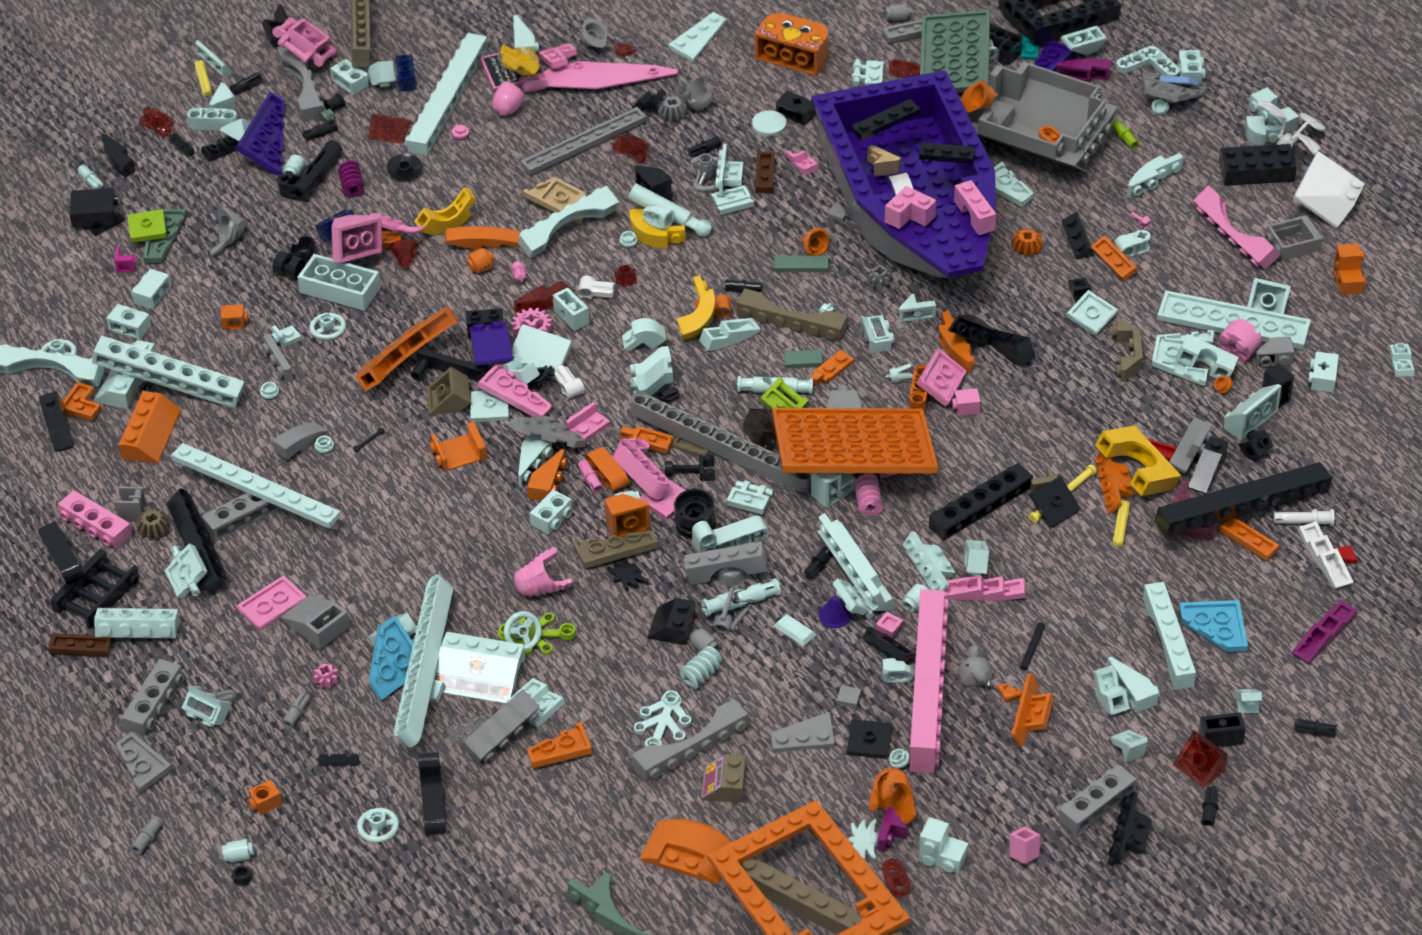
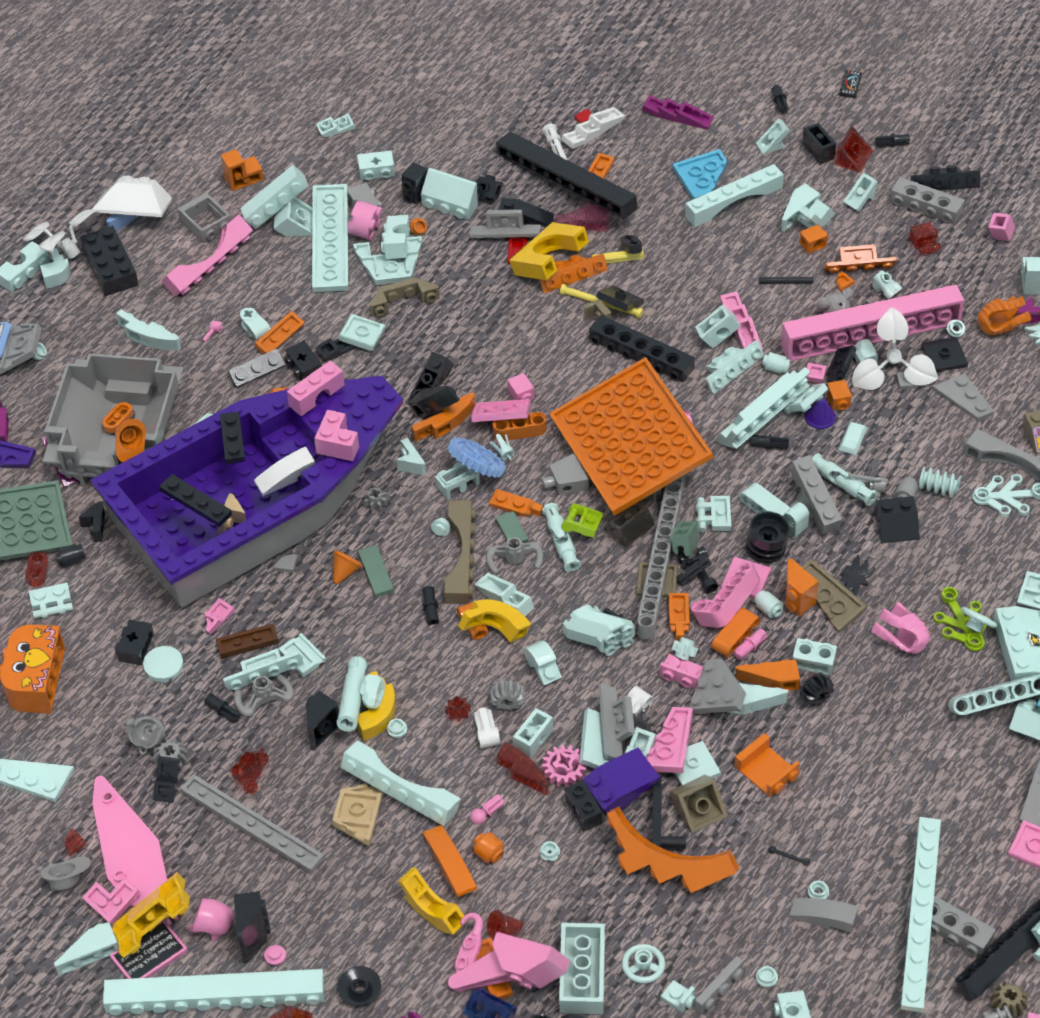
camera: 110 degrees left, 5 degrees up
(458, 297) = (549, 846): none -> light aqua plate
(481, 106) = (251, 923): none -> black slope
(512, 498) = (816, 689): none -> black gear
(553, 354) = (616, 720): none -> light grey bracket
(606, 428) = (684, 648): none -> light aqua gear
(618, 303) = (507, 695): none -> light grey gear
(687, 458) = (694, 570): none -> black axle
(724, 459) = (686, 535): none -> sand green hinge
(772, 348) = (514, 553): none -> light grey piece
(849, 630) = (839, 395): none -> orange brick
(878, 687) = (919, 371): none -> white plant
(898, 352) = (476, 457): none -> light blue gear
(982, 721) = (884, 282): none -> light aqua plate
(1043, 776) = (924, 237): none -> clear red brick
(1069, 266) = (302, 360): none -> black brick
(1078, 681) = (813, 238): none -> orange brick
(1128, 532) = (631, 244): none -> black beam
(1287, 274) = (274, 197): none -> light aqua brick
(1321, 803) = (850, 84): none -> black tile

